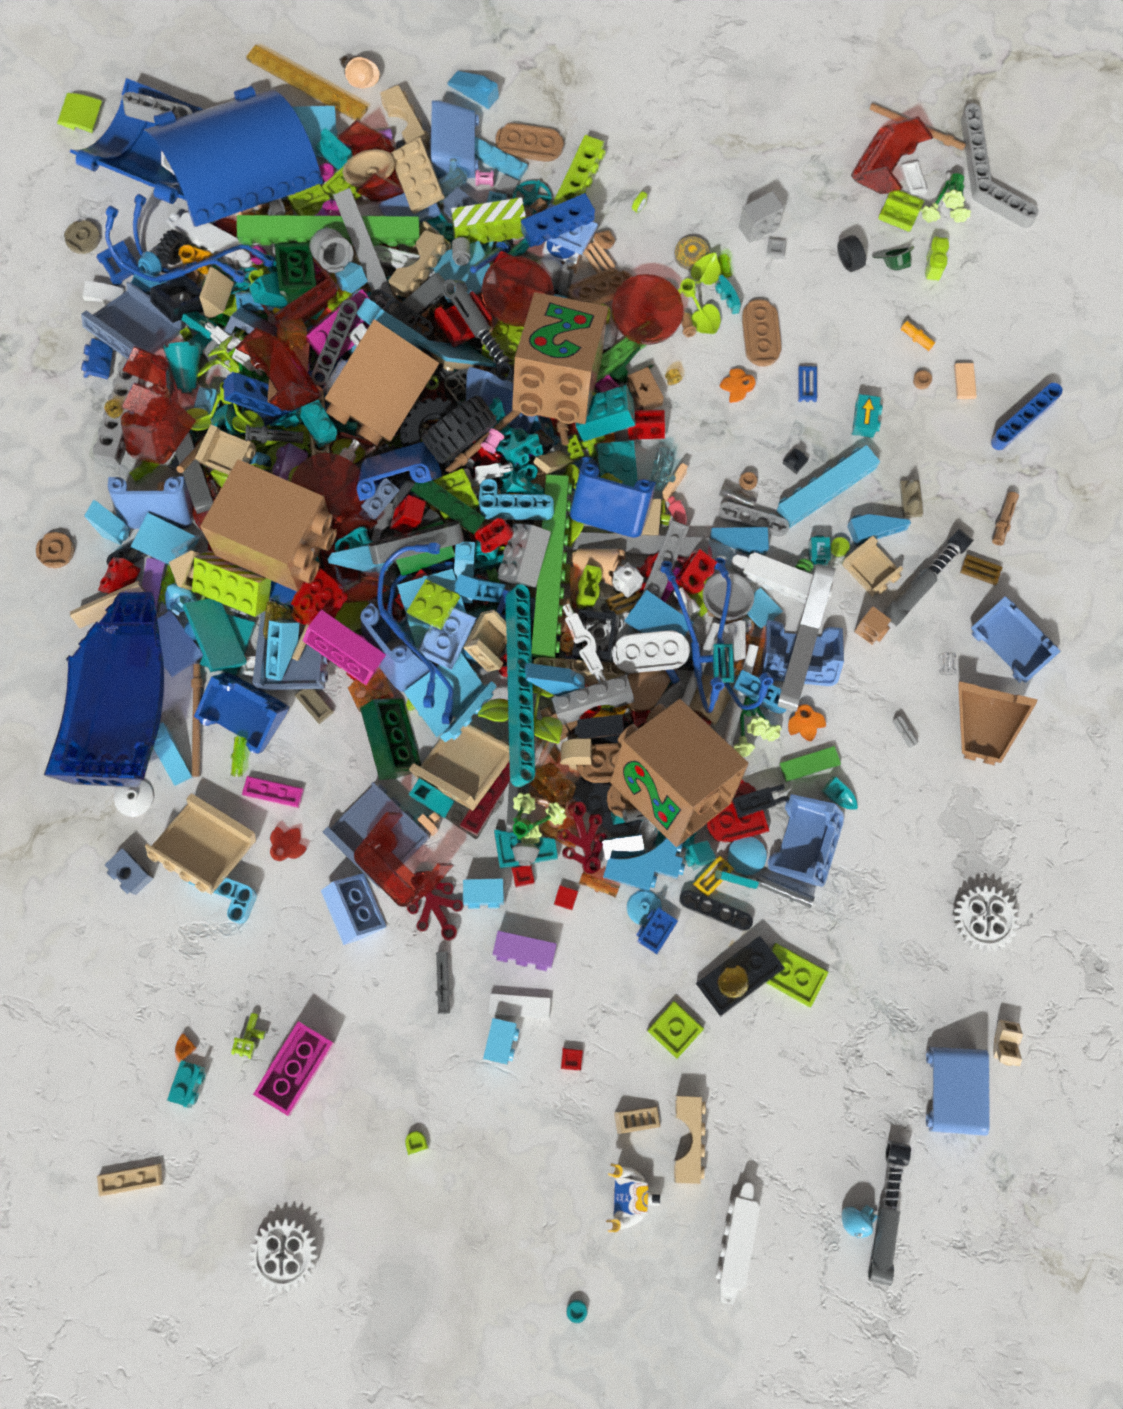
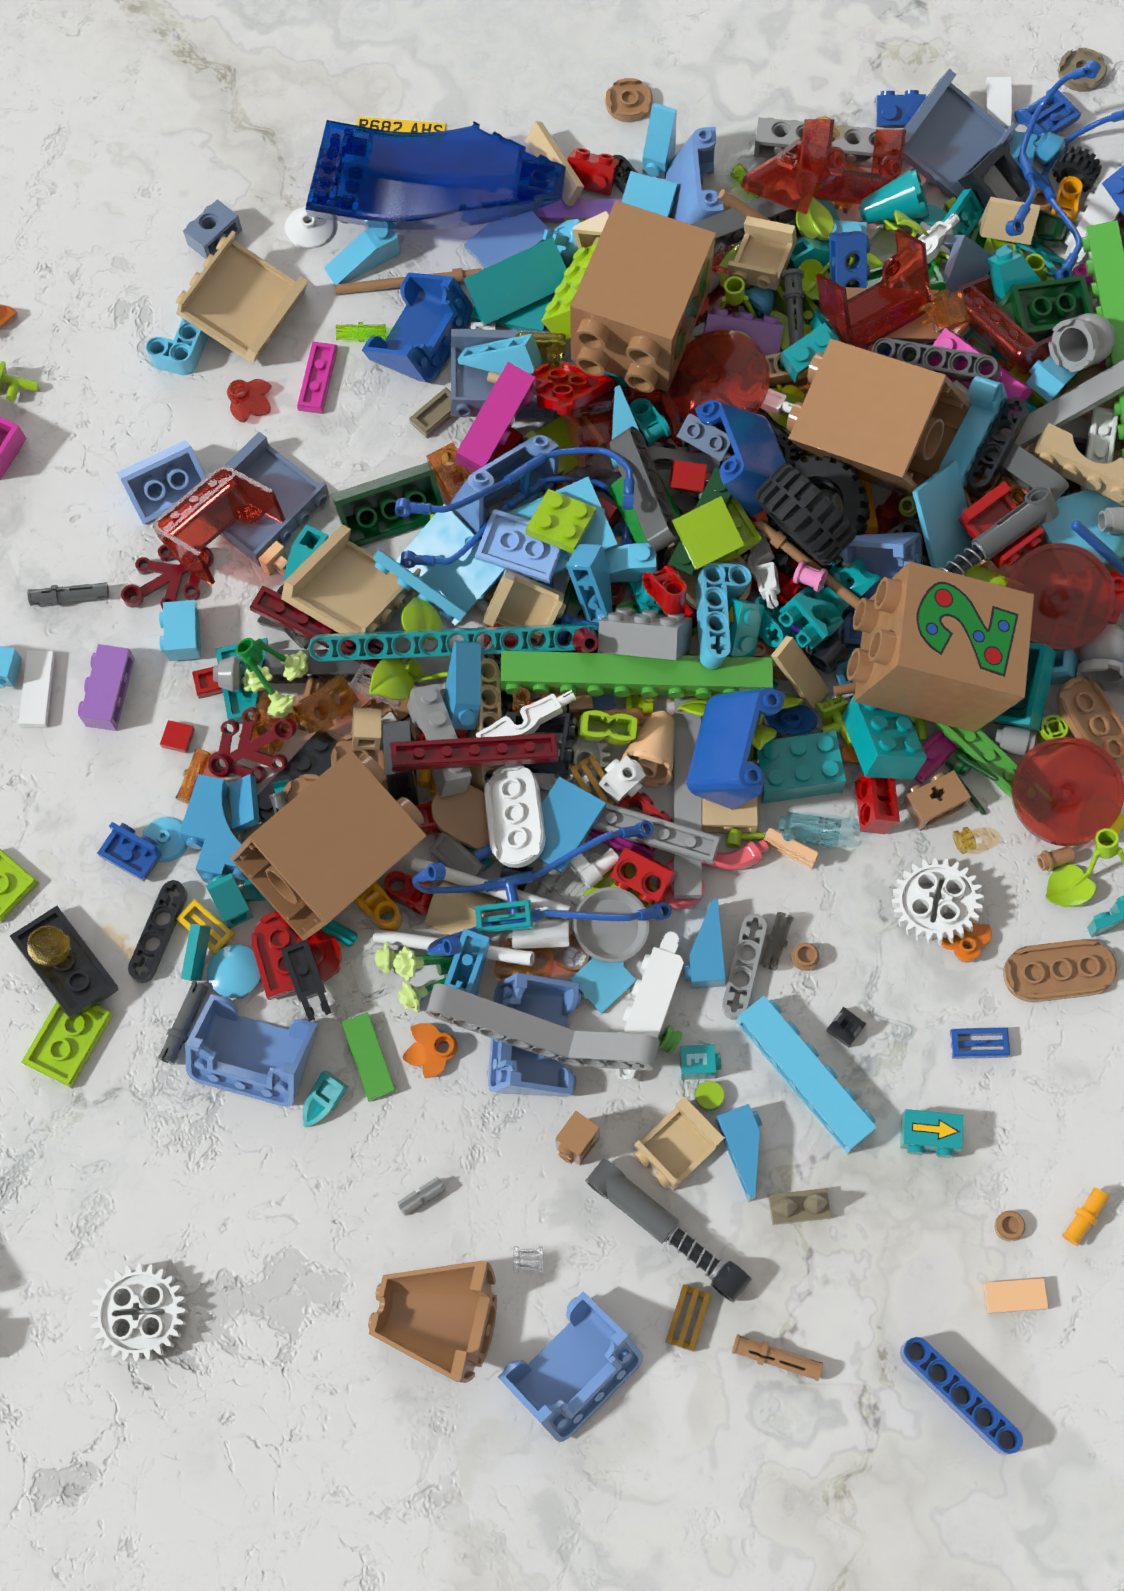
camera: 90 degrees right, 5 degrees down
(50, 724) = (400, 125): none -> yellow sticker
(460, 499) = (708, 533): none -> lime tile
(528, 592) = (581, 636): none -> dark red cone
(611, 671) = (473, 752): none -> dark red tile
(720, 380) = (963, 905): none -> white gear

